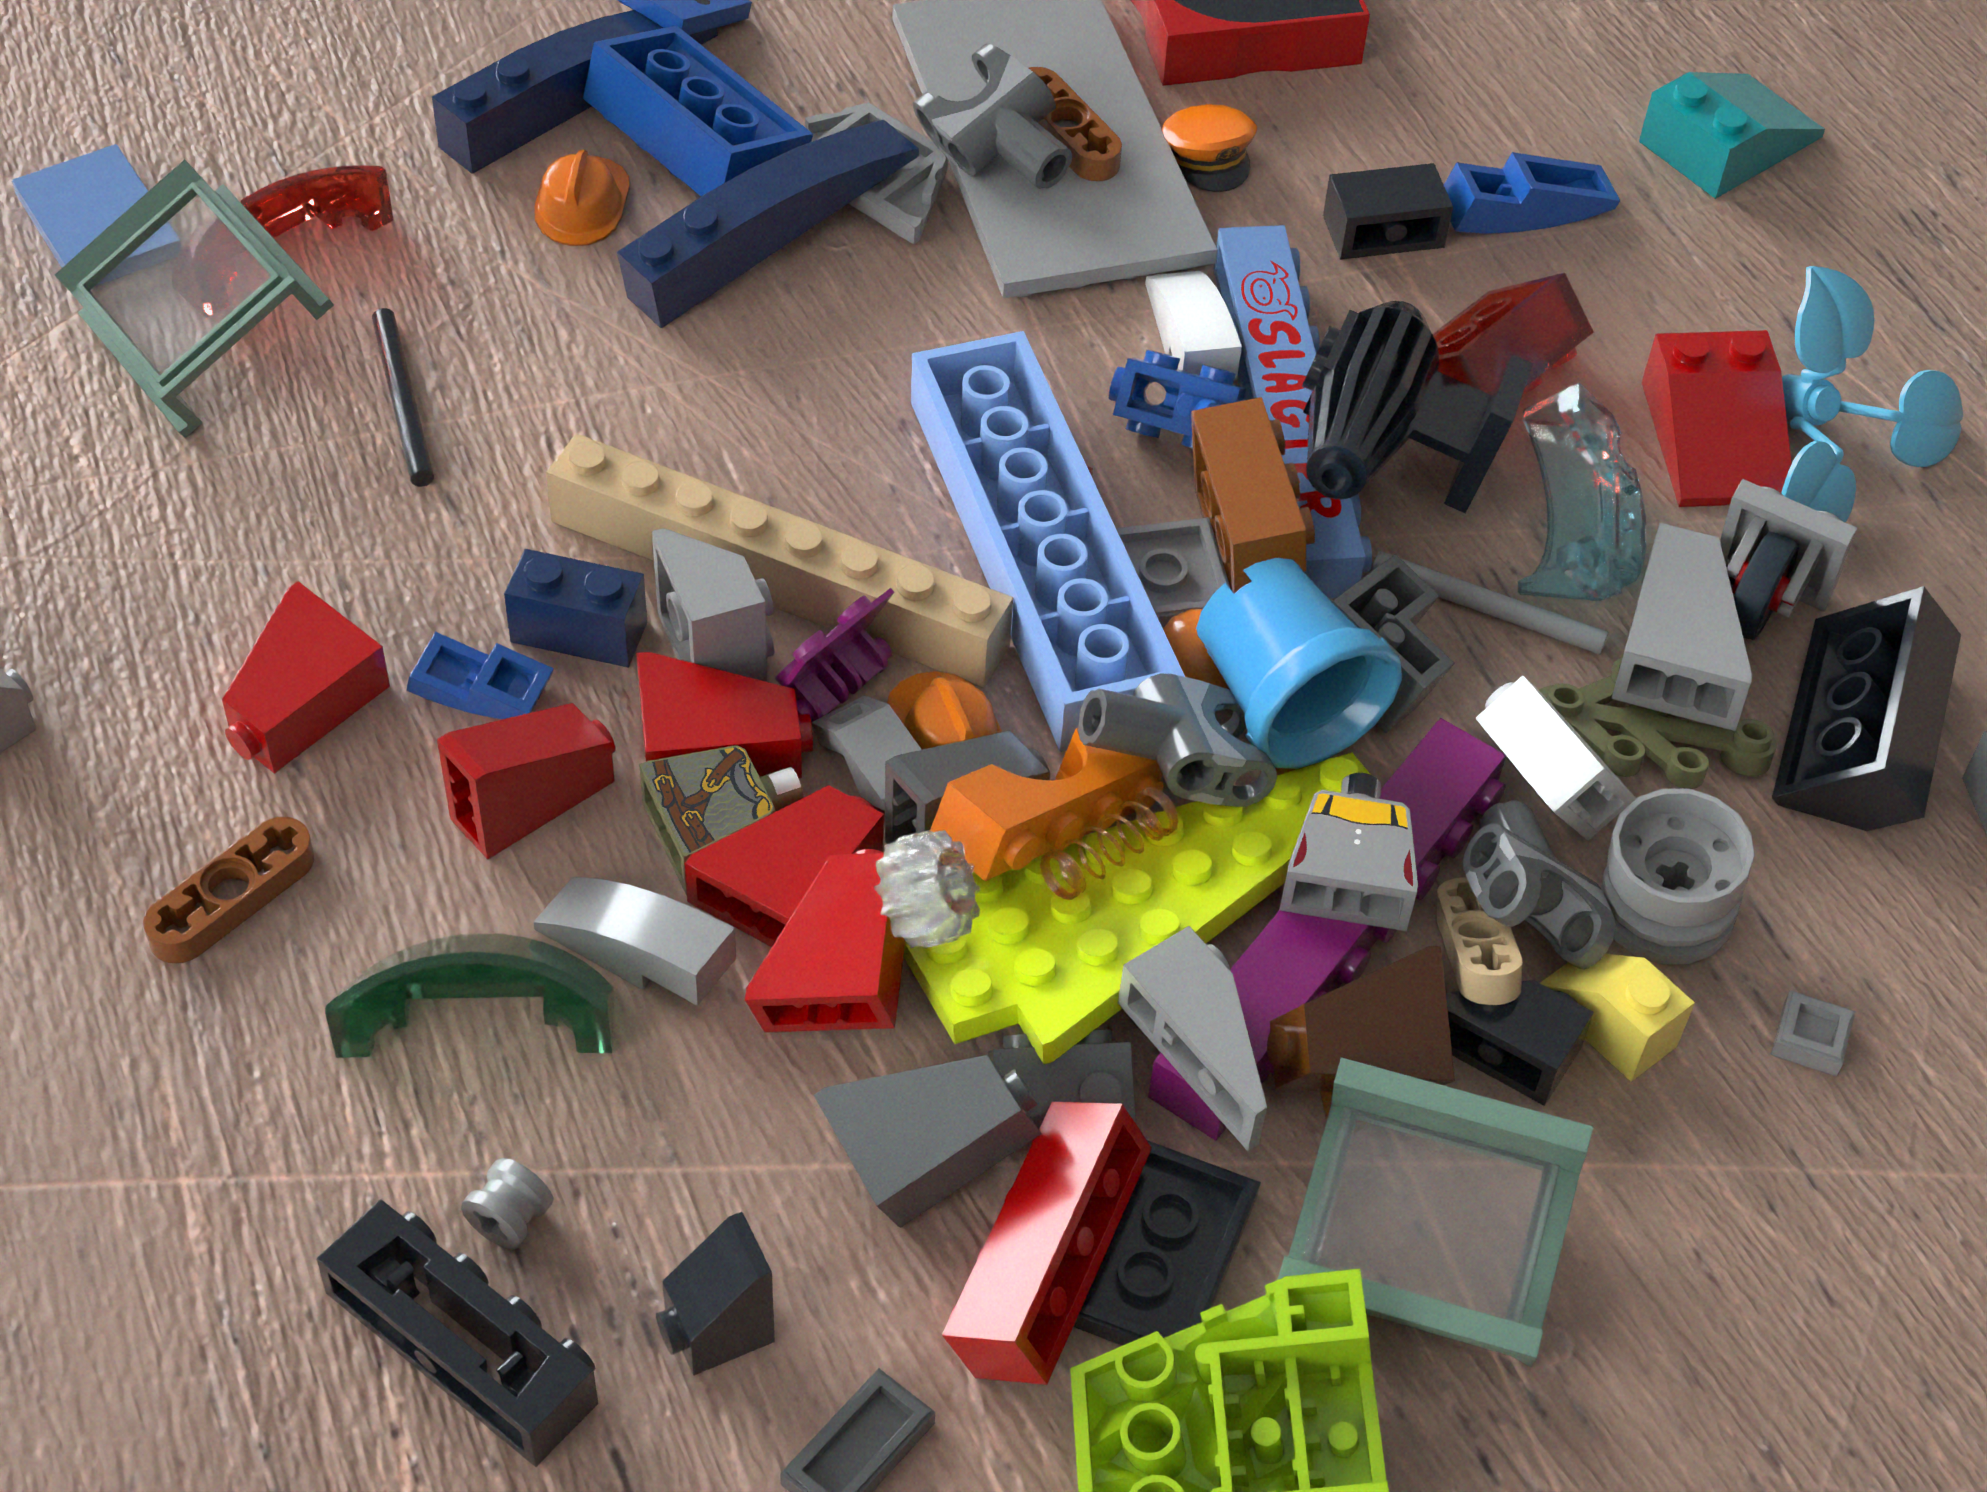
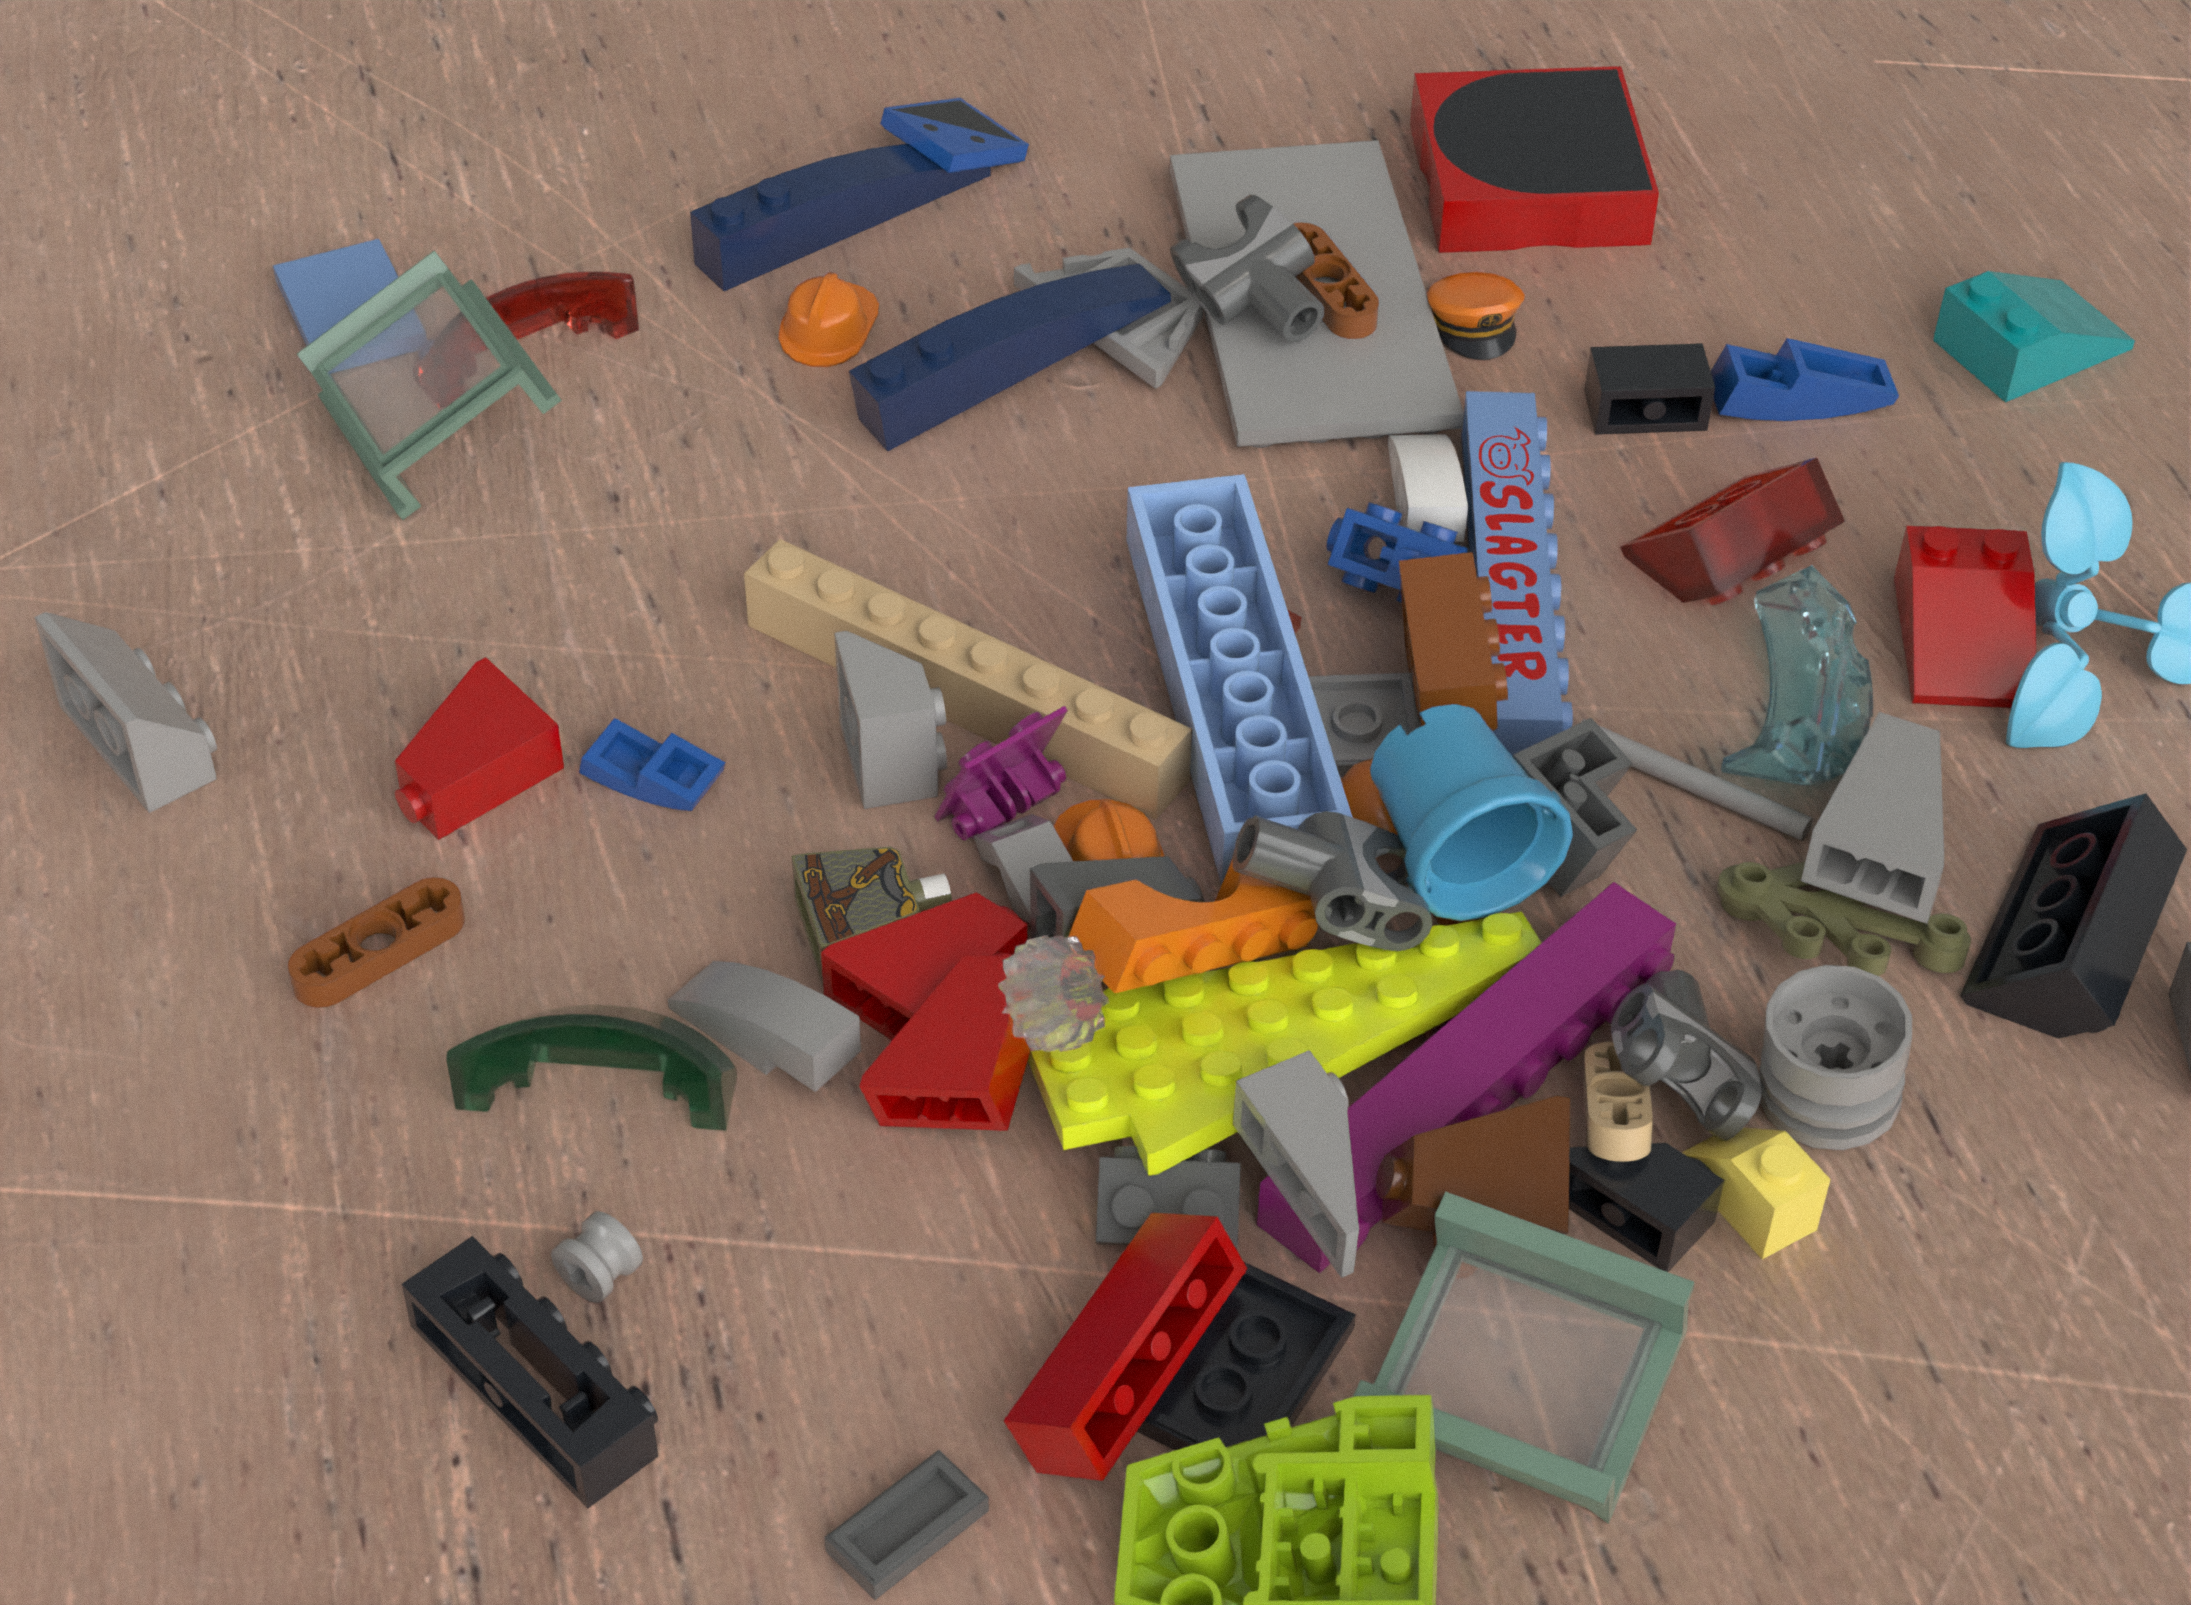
camera: 10 degrees right, 5 degrees down
(402, 398) = (620, 497): black bar -> none
(522, 773) = (677, 855): red slope -> none
(576, 607) = (756, 706): dark blue brick -> none
(687, 107) = (943, 237): blue slope -> none
(706, 708) = (866, 809): red slope -> none
(719, 1299) = (787, 1364): black slope -> none
(929, 1129) = (1023, 1226): dark grey slope -> none
(1068, 863) = (1205, 991): clear orange piece -> none
(1354, 858) = (1492, 1005): light grey torso -> none
(1382, 386) = (1609, 551): black piece -> none
(1554, 758) = (1725, 930): white slope -> none
(1780, 554) = (2000, 755): light grey plate -> none
(1813, 1033) = (1962, 1229): light grey tile -> none

